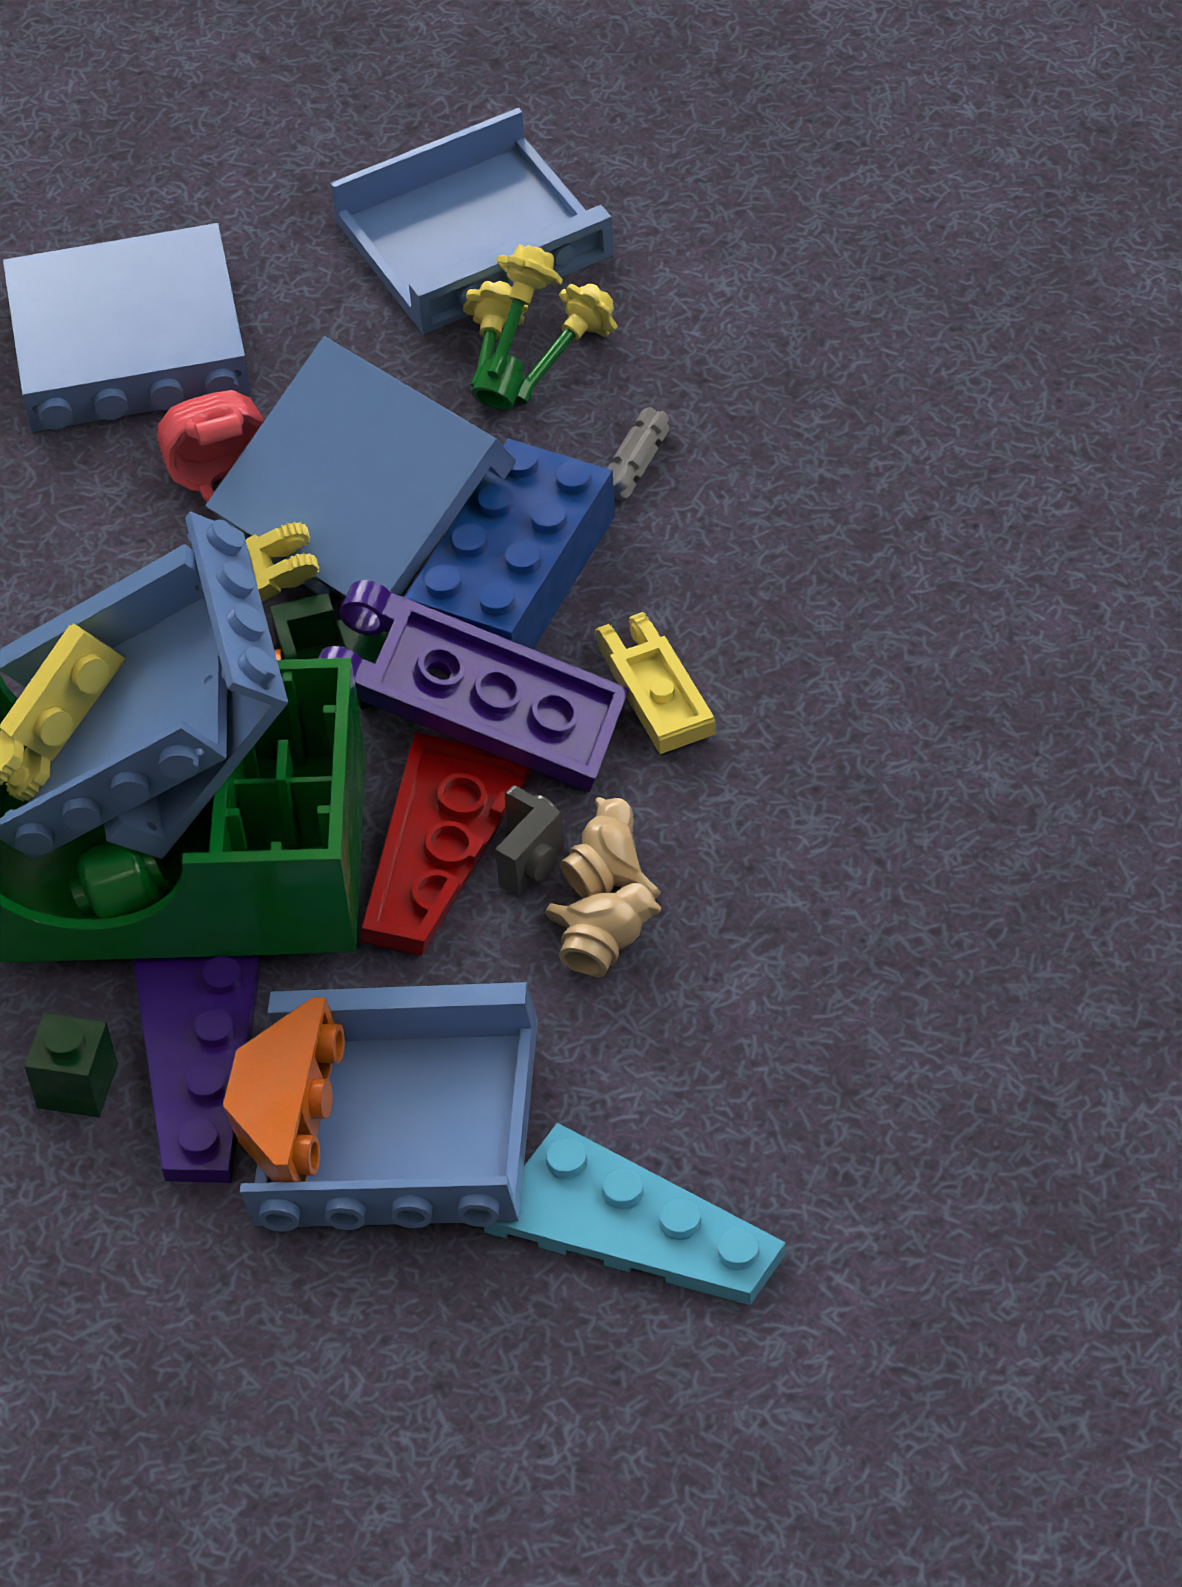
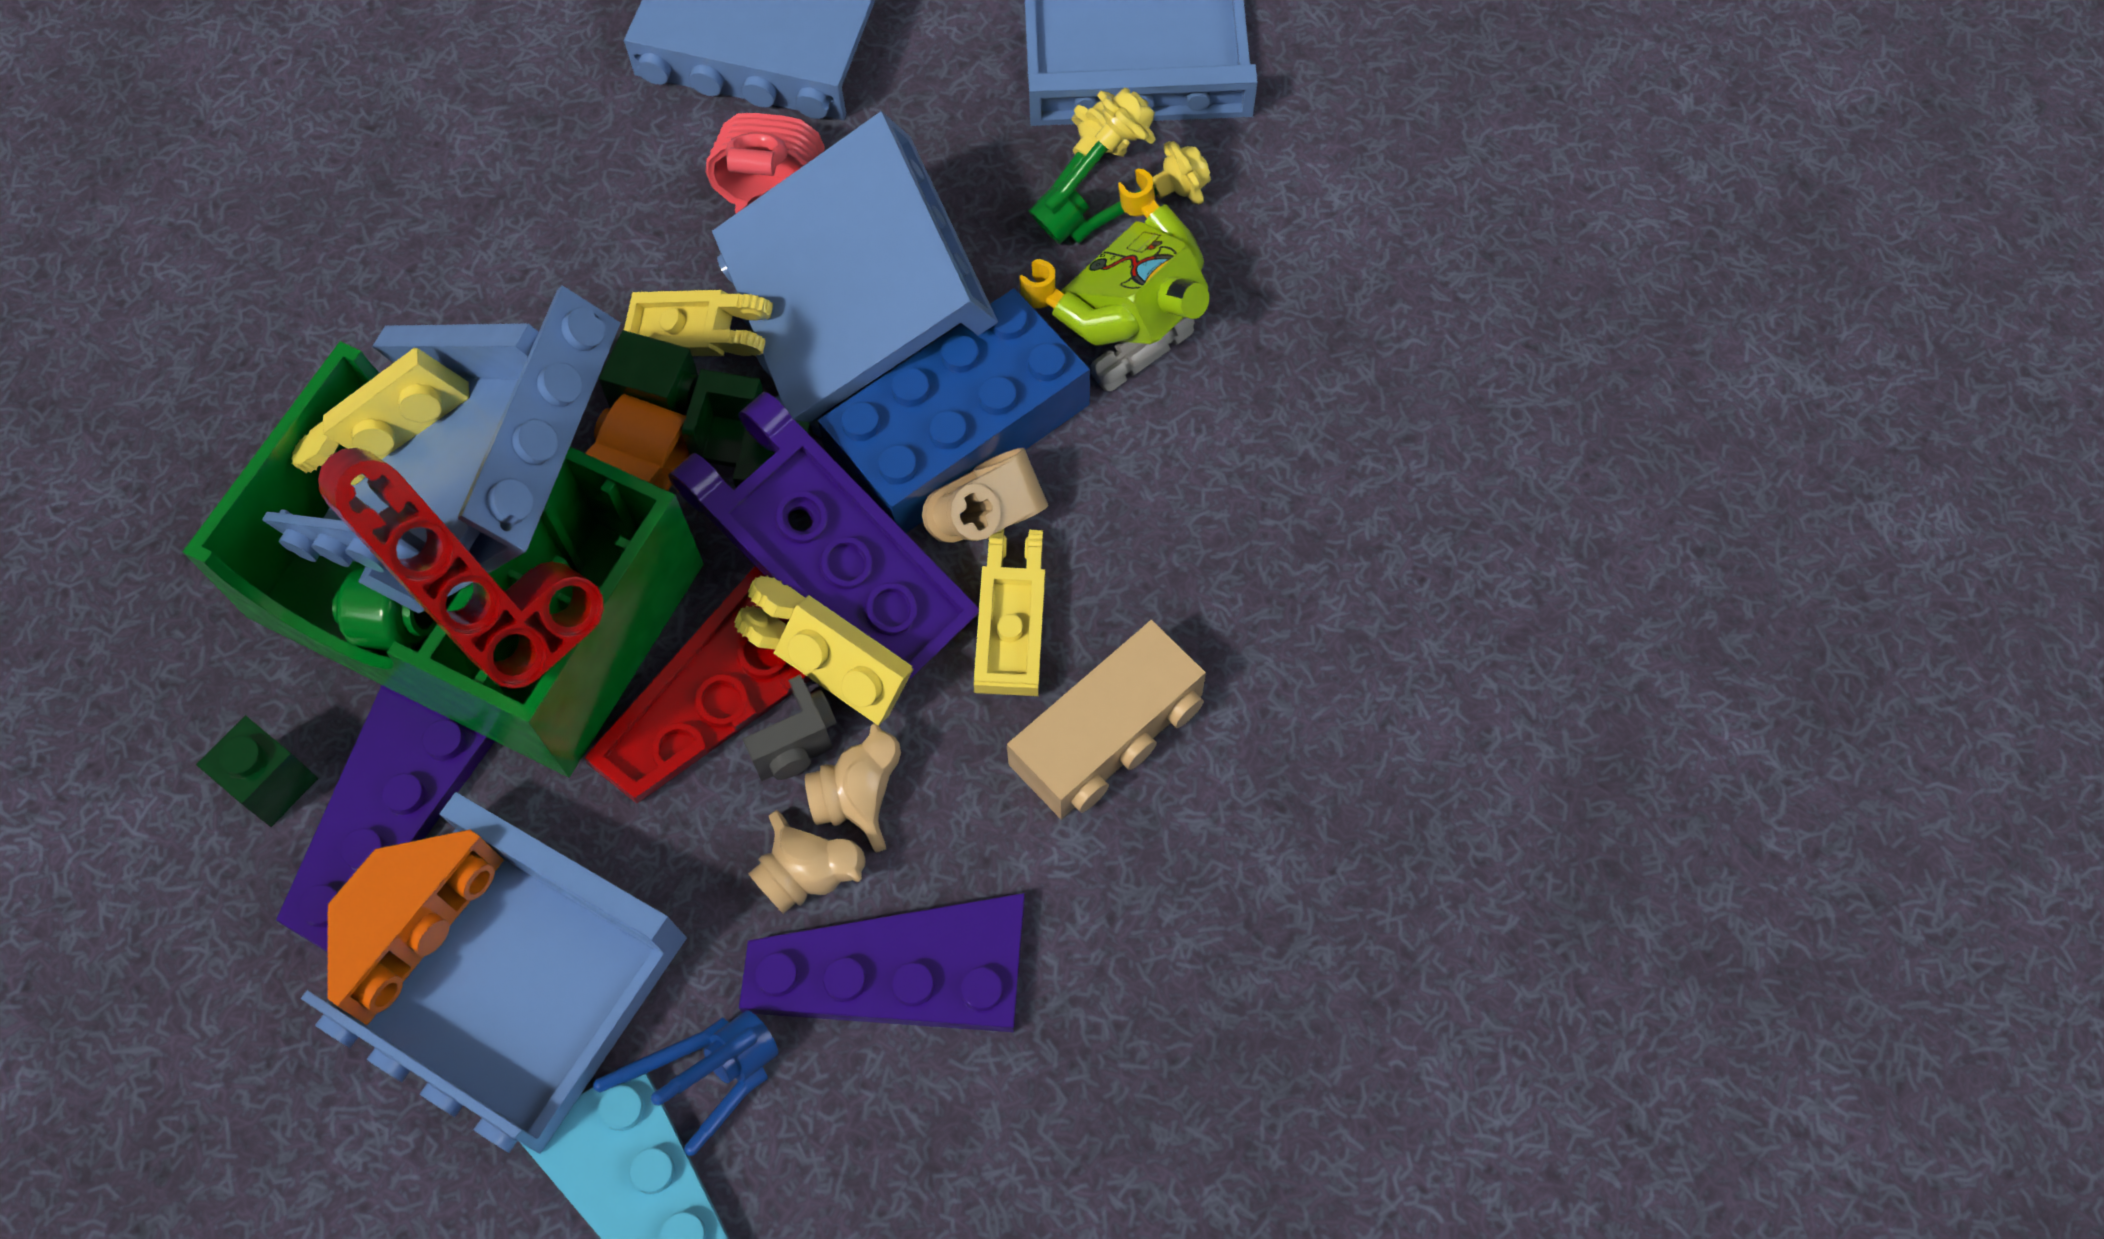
camera: 25 degrees right, 15 degrees up
(269, 771) = (446, 563): none -> red beam
(526, 757) = (824, 648): none -> light yellow hinge
(580, 605) = (990, 497): none -> tan piece
(606, 399) = (1136, 284): none -> lime torso
(632, 1080) = (731, 1051): none -> blue plant
(733, 967) = (906, 969): none -> dark purple wing
(788, 720) = (1107, 721): none -> tan brick

